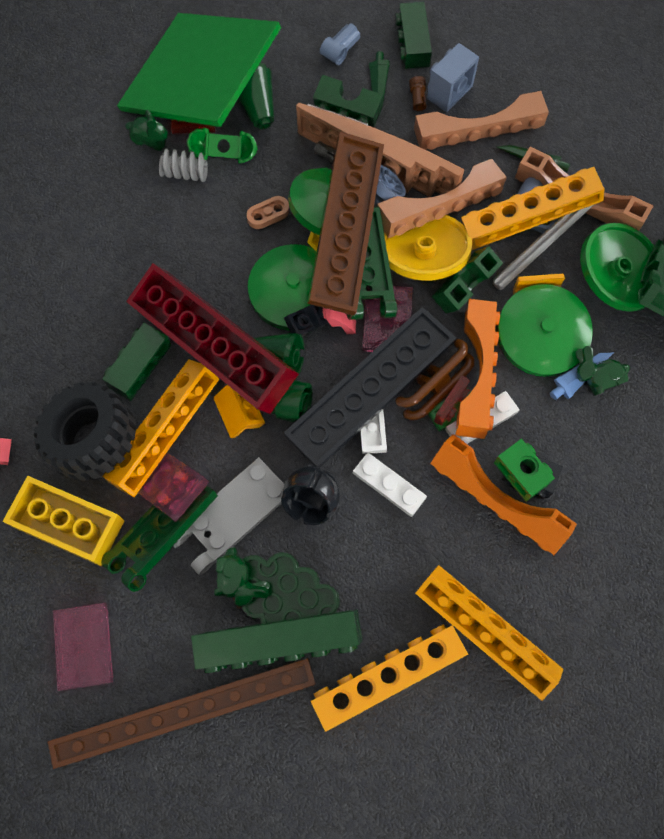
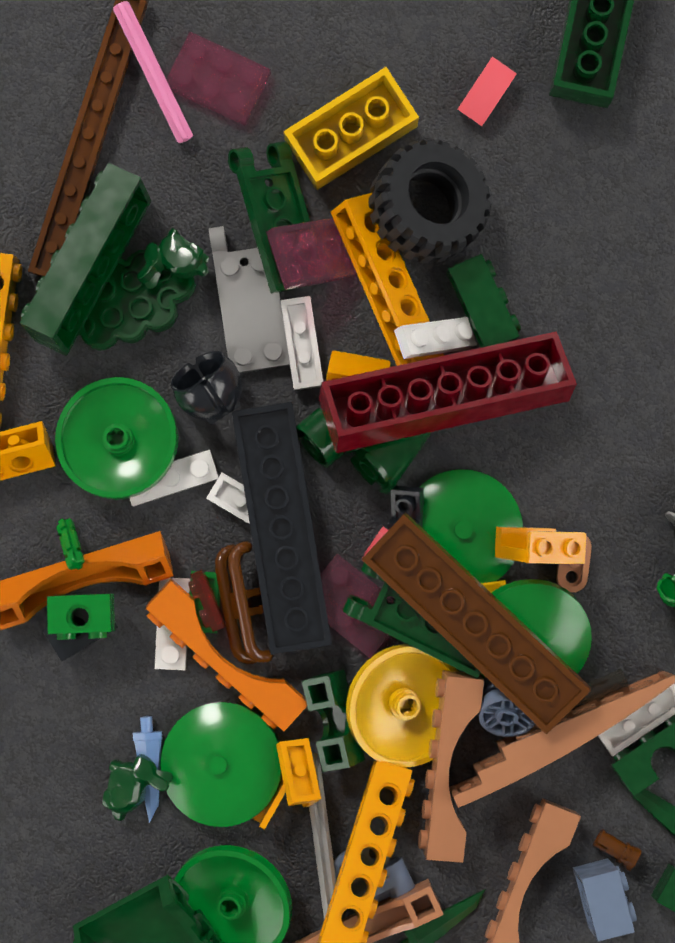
camera: 125 degrees right, 15 degrees up
(104, 697) = (152, 71): none -> bright pink axle
(178, 370) = (435, 337): none -> white plate
(238, 458) = (302, 343): none -> white plate
(278, 235) = (540, 545): none -> light orange panel
(389, 534) = (116, 438): none -> green dish
(482, 516) = (70, 544): none -> green axle
(514, 275) = (298, 772): none -> light orange panel

